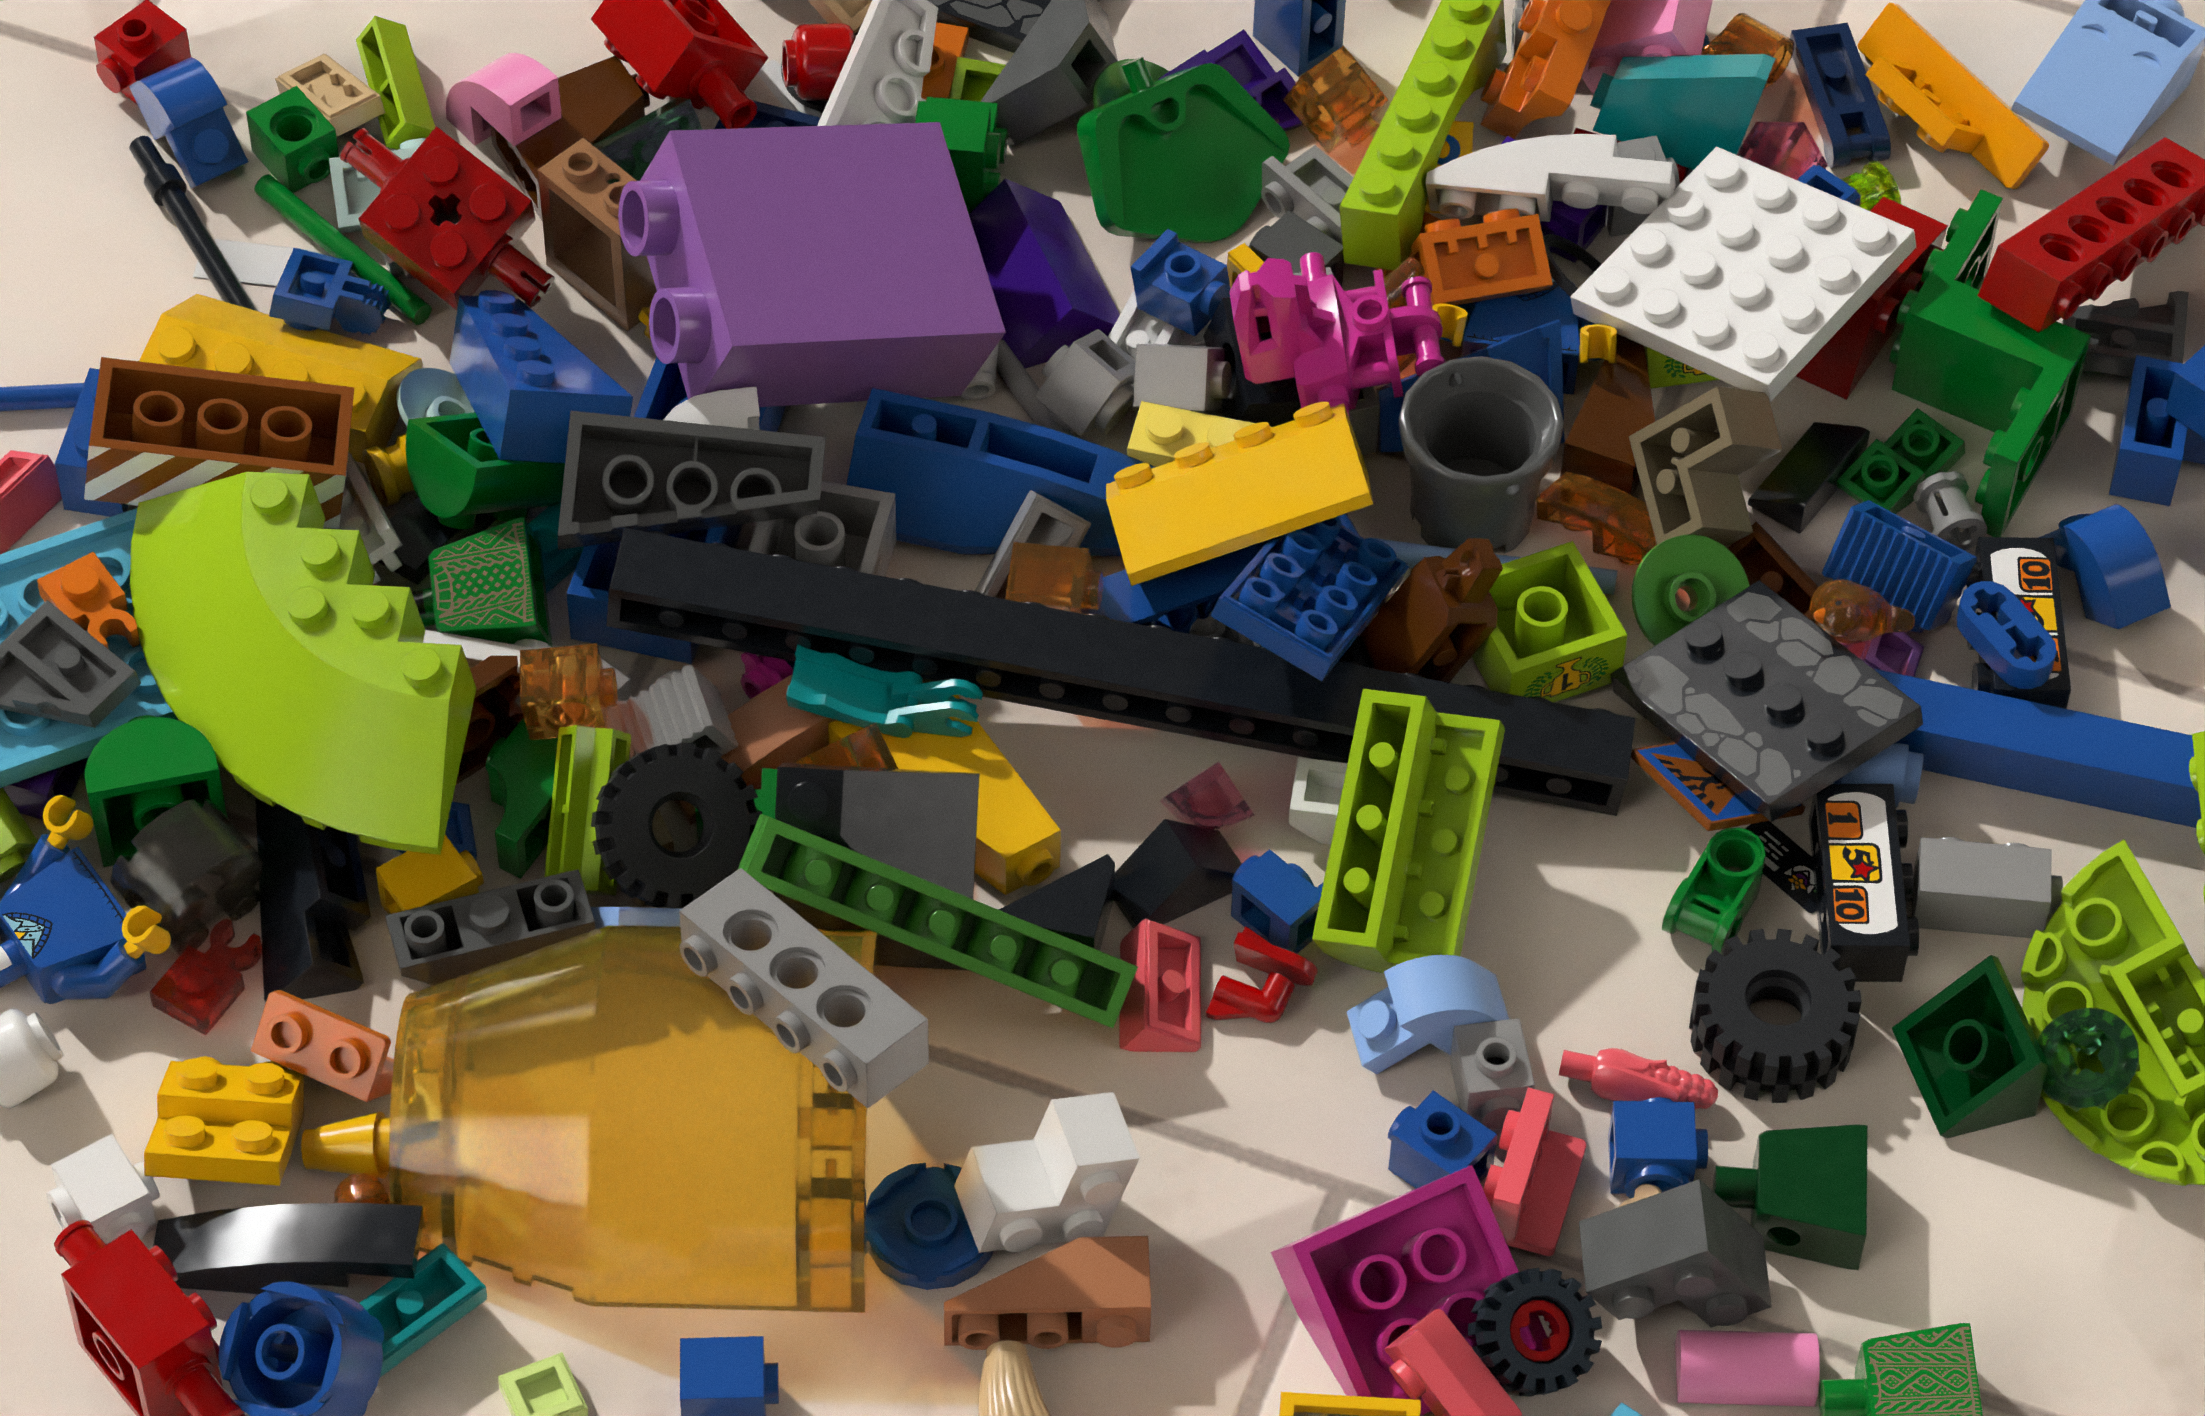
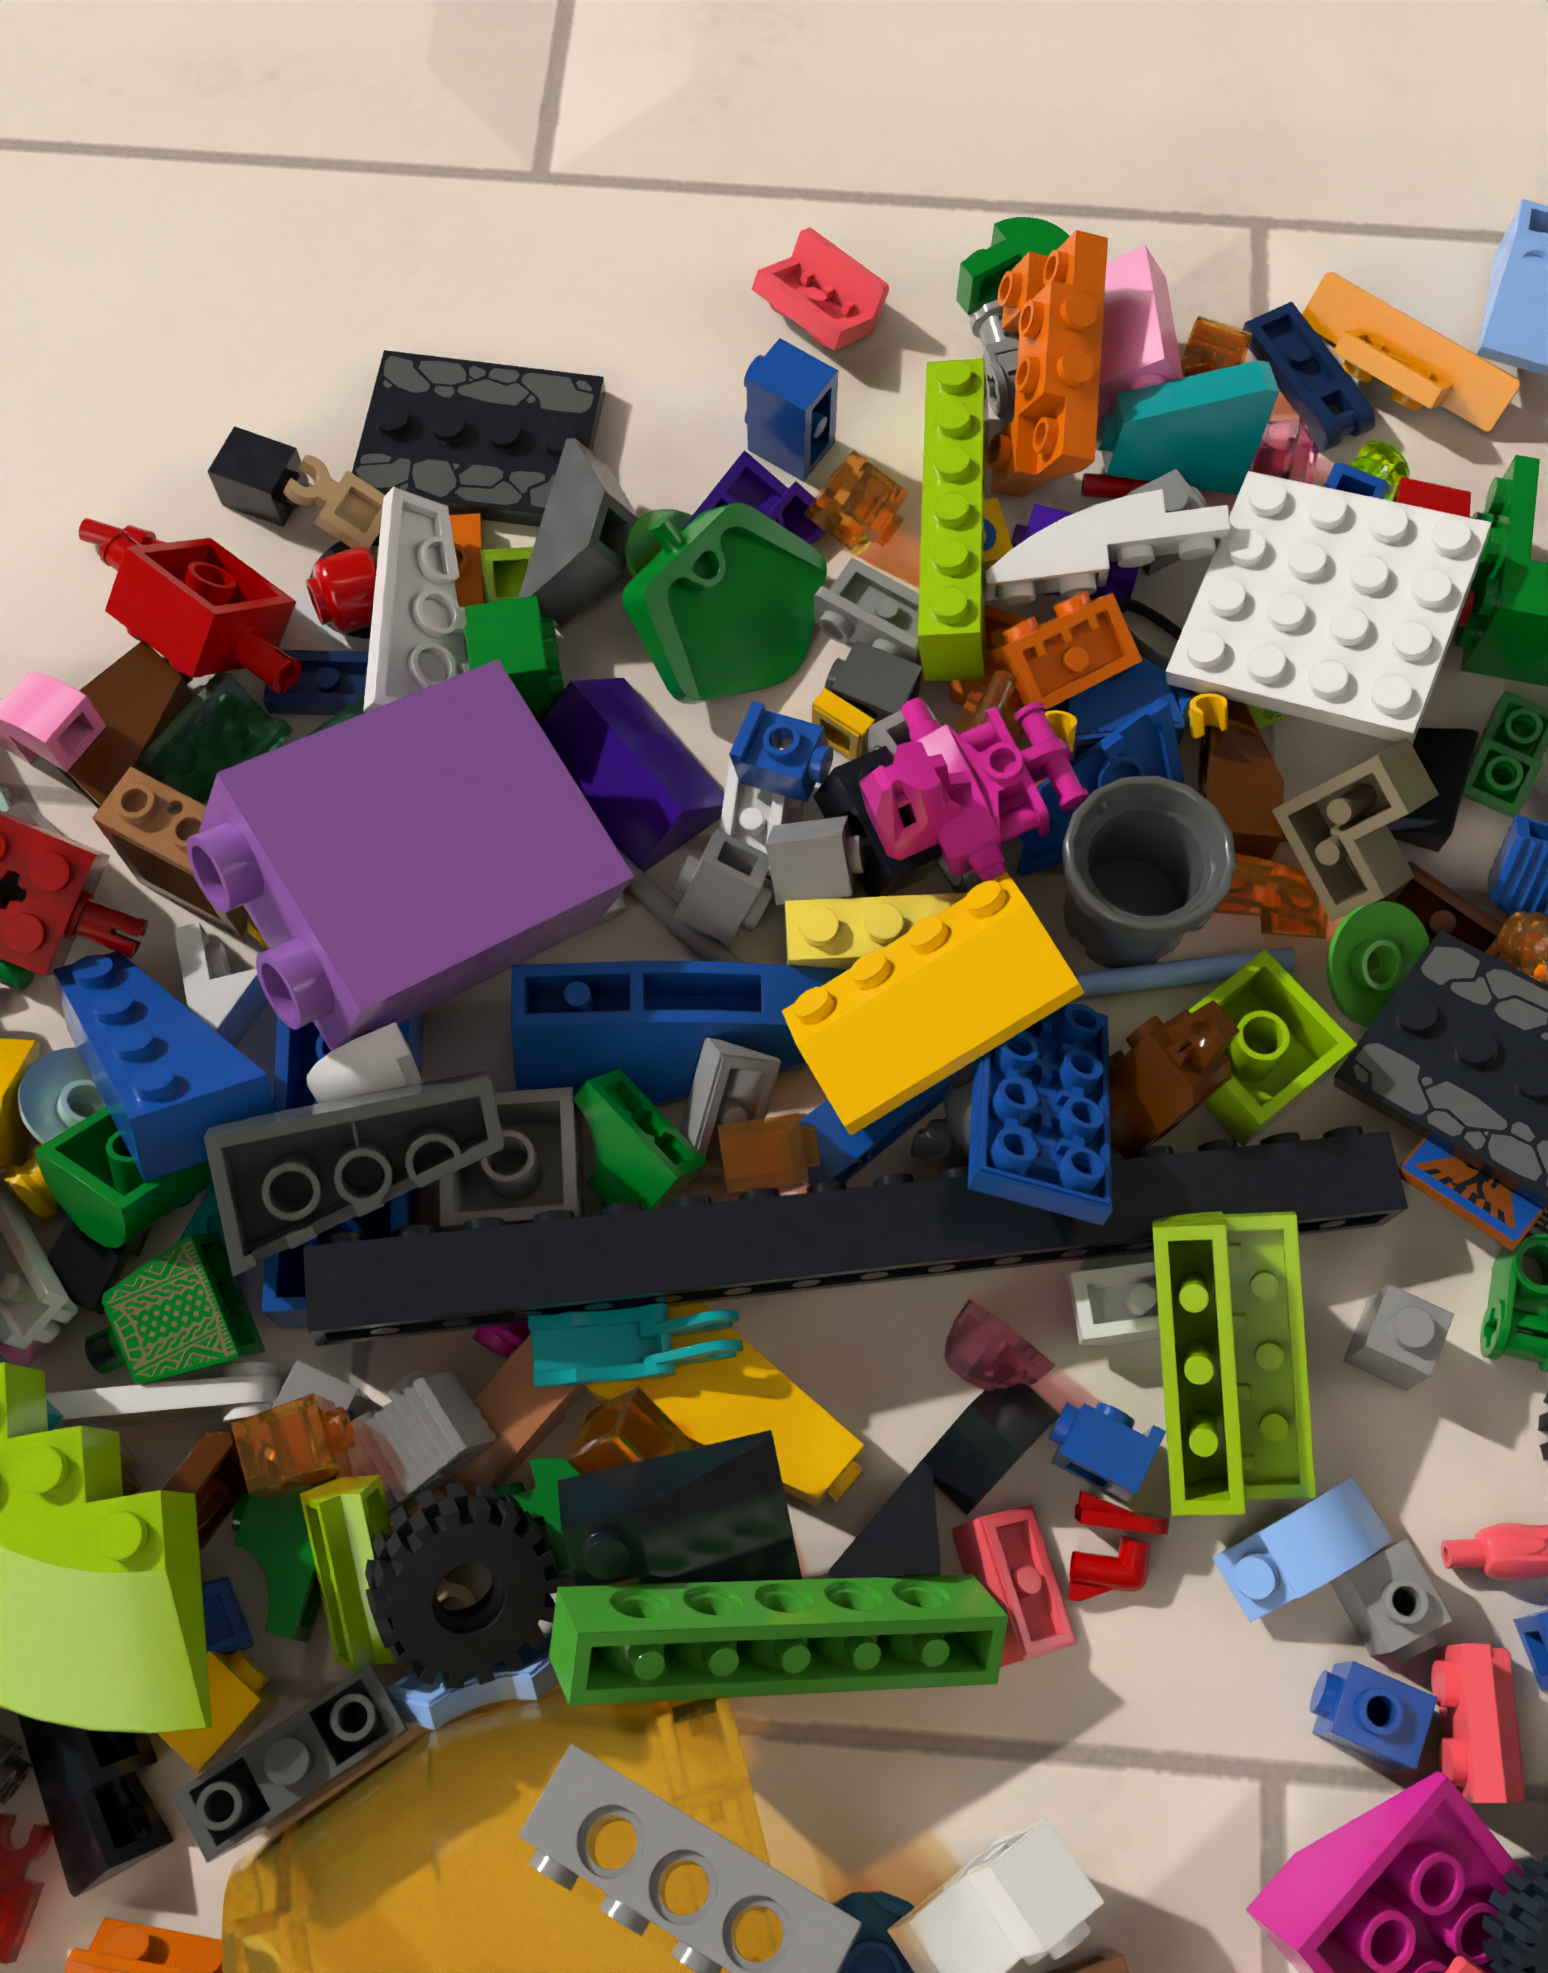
camera: 15 degrees left, 15 degrees up
(593, 337) = (215, 995): none -> white slope
(935, 547) = (635, 1145): none -> green arch
(1582, 885) = (1398, 1337): none -> light grey brick

